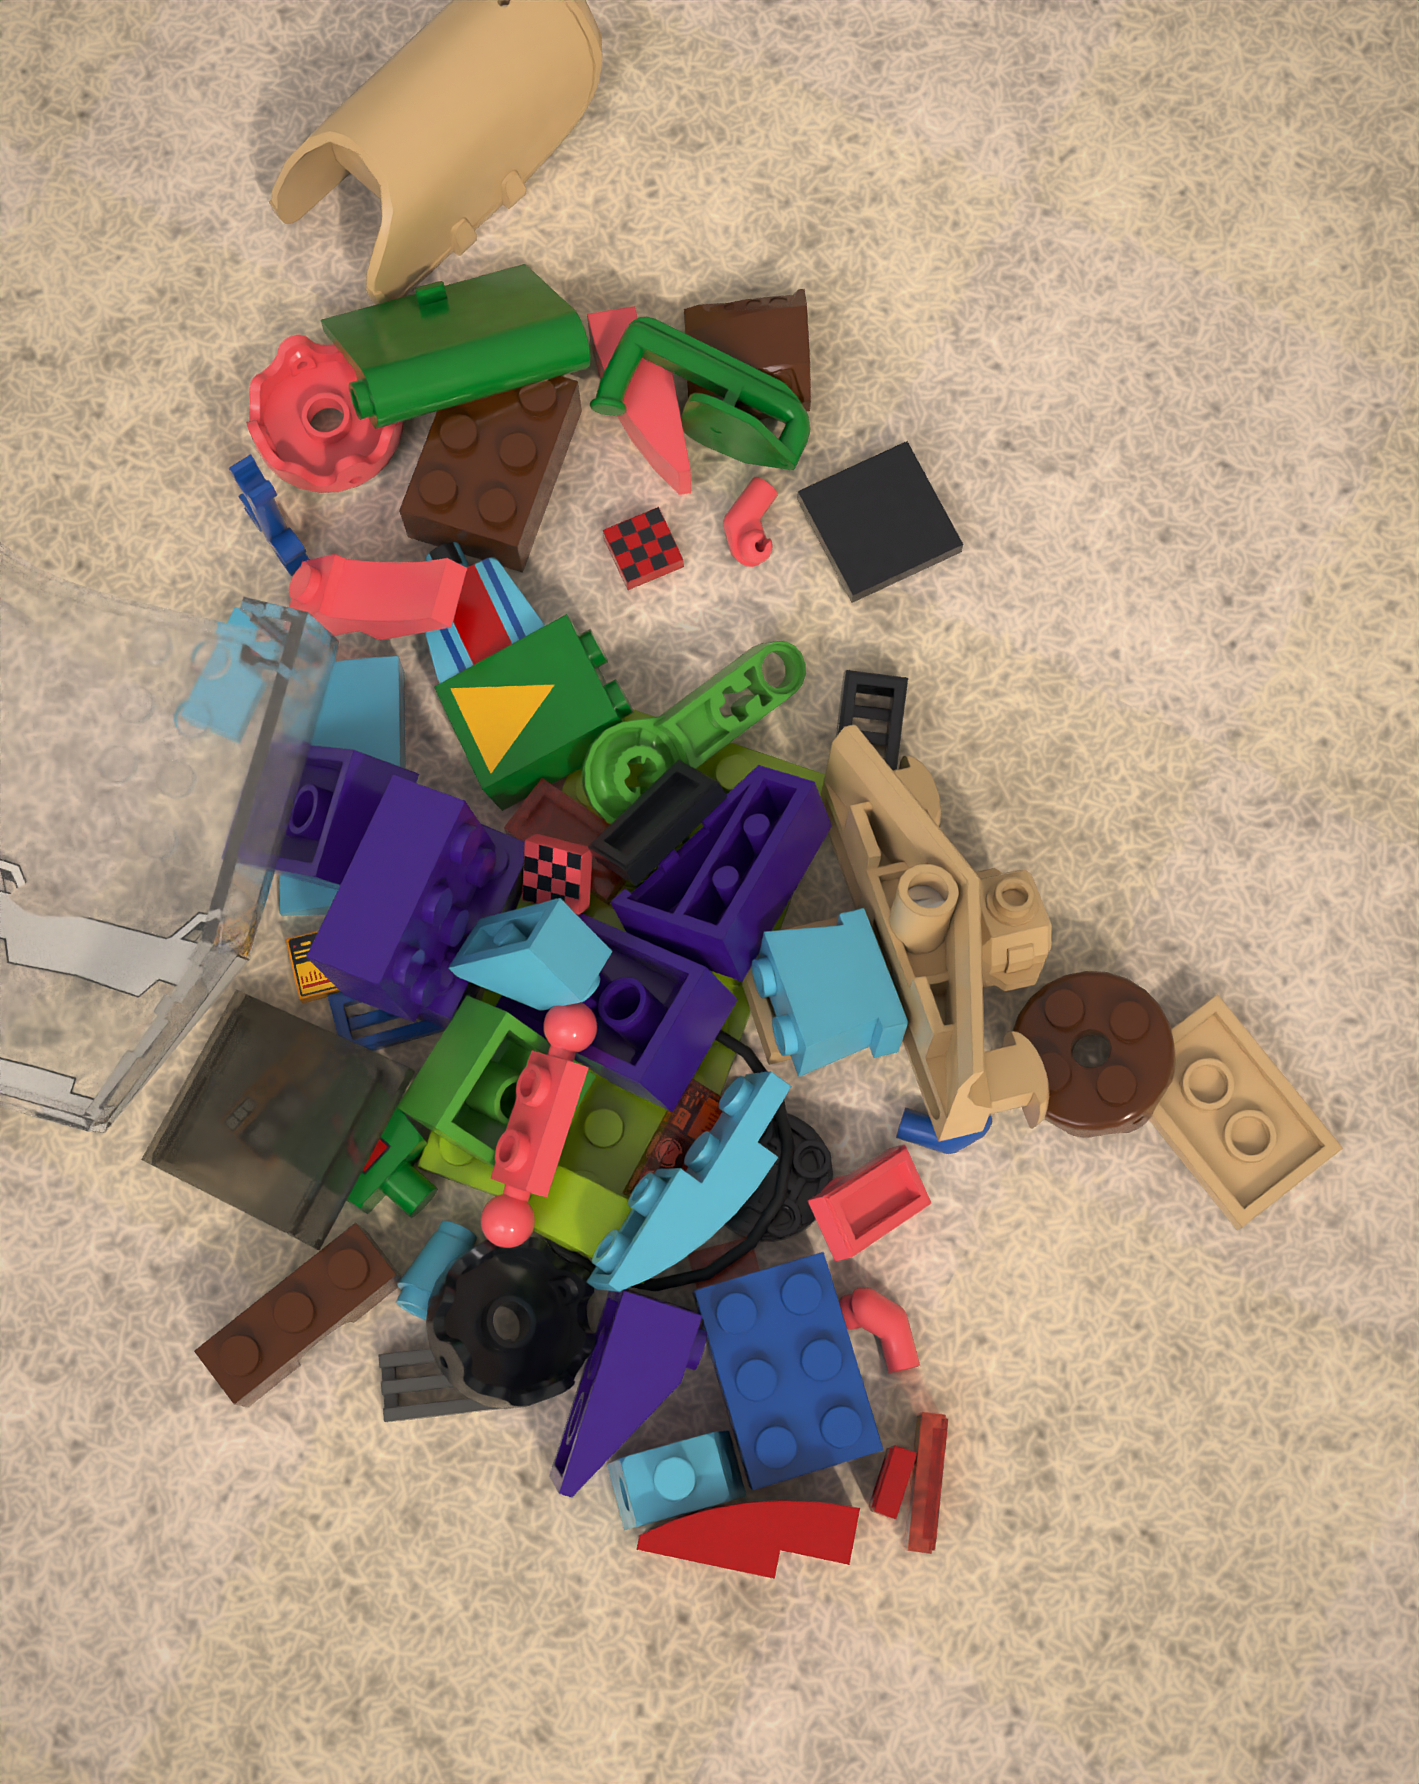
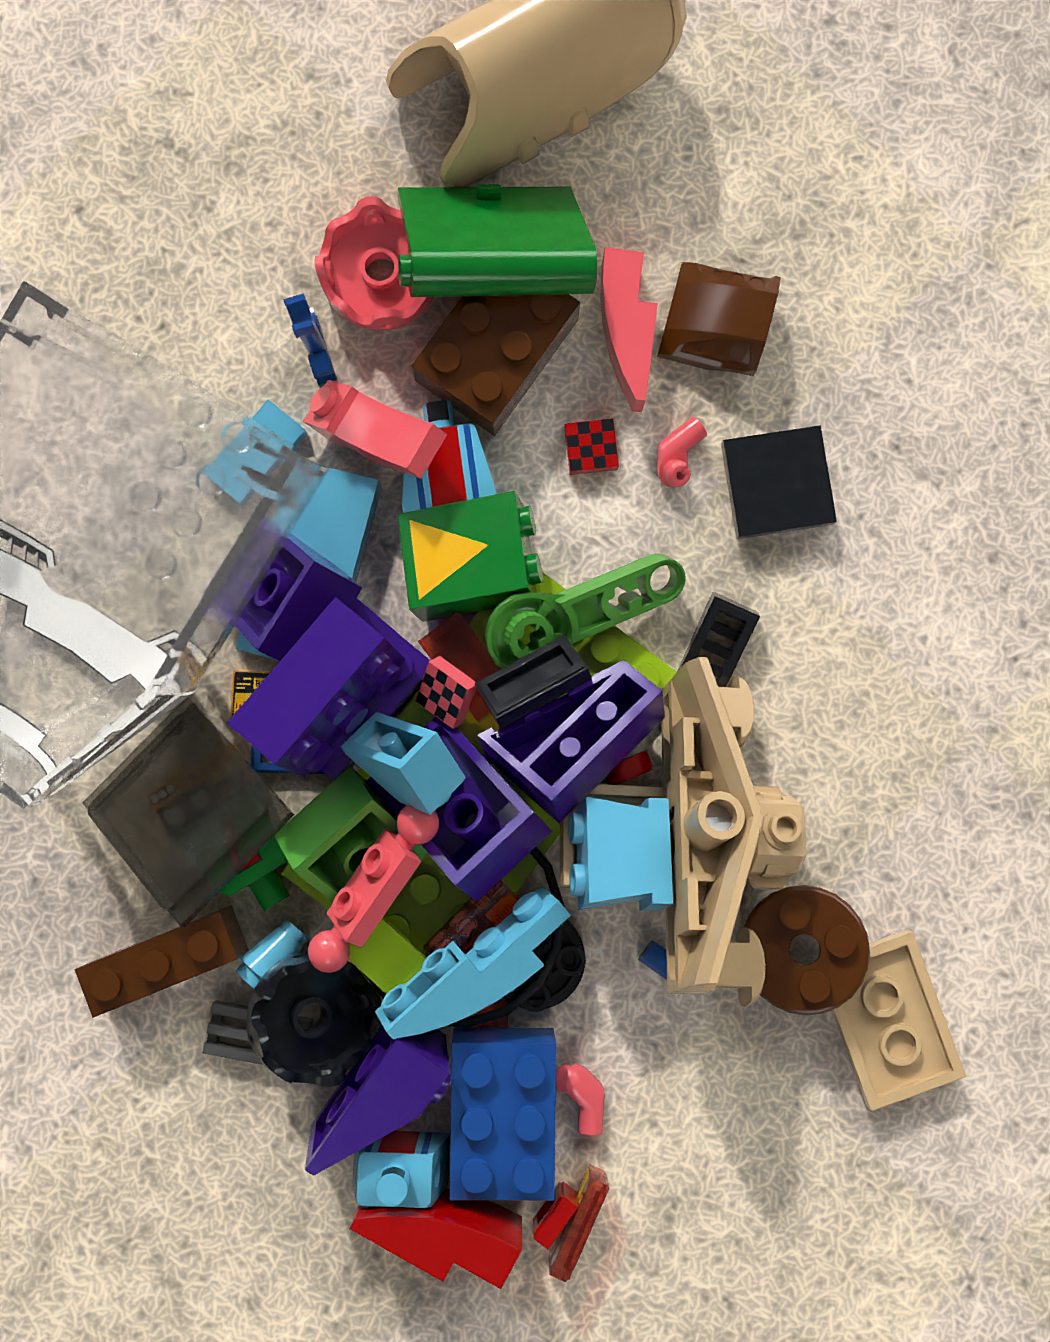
camera: 15 degrees right, 10 degrees up
(704, 417) = (692, 329): green piece -> none
(809, 903) = (630, 768): none -> red tile
(869, 1202) = (601, 1009): coral tile -> none

